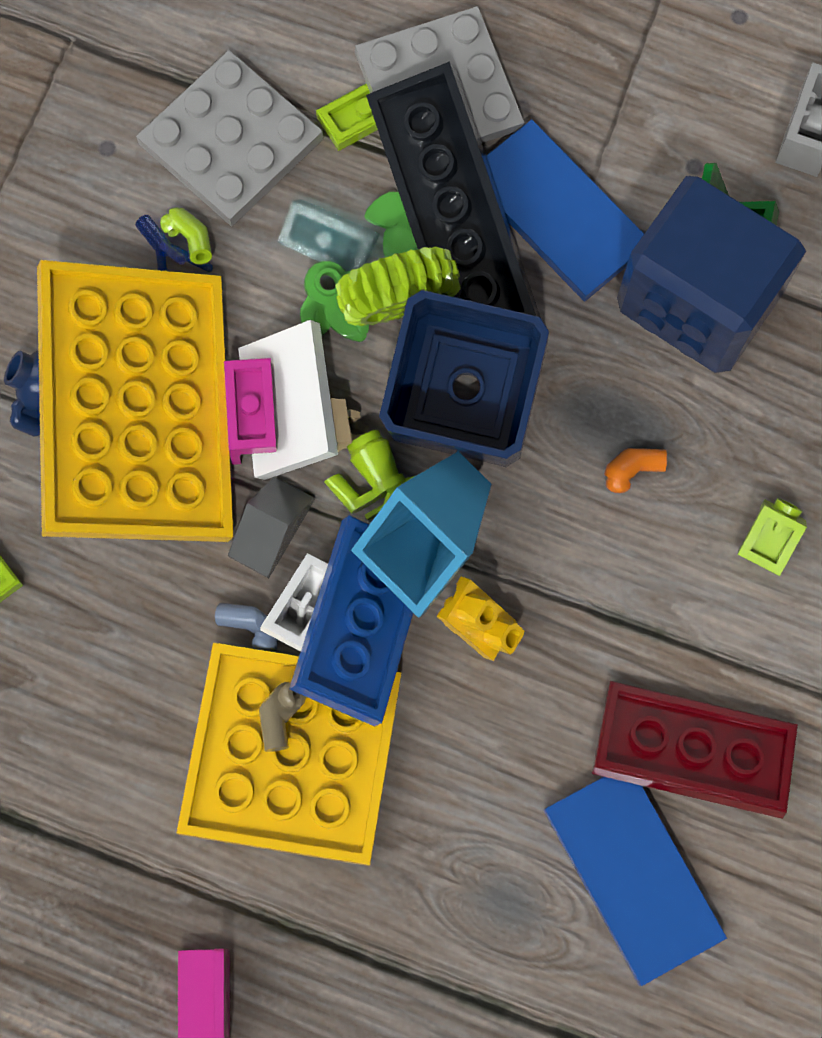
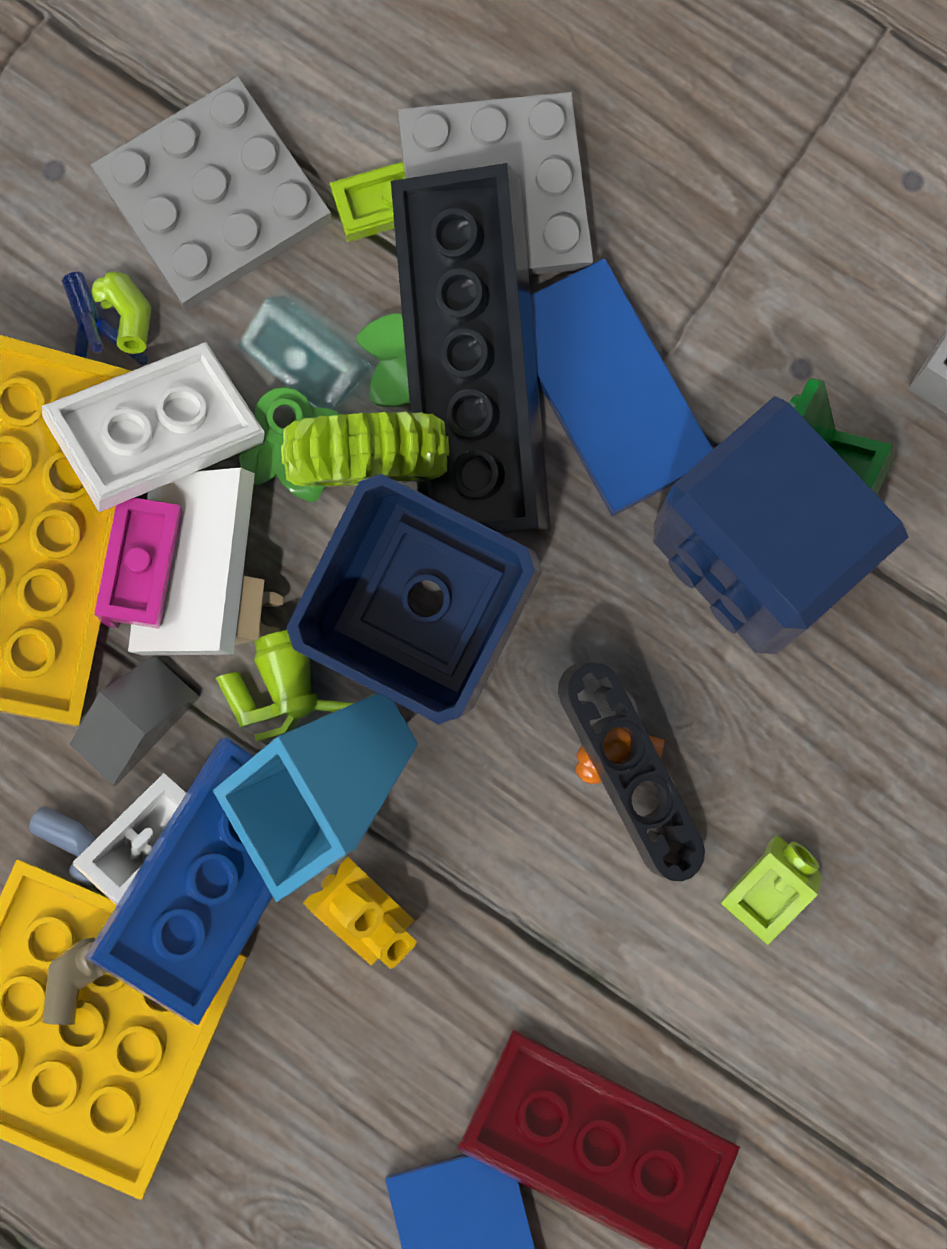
camera: 10 degrees right, 5 degrees up
(235, 308) = (152, 426): none -> white tile
(654, 467) = (624, 776): none -> black beam

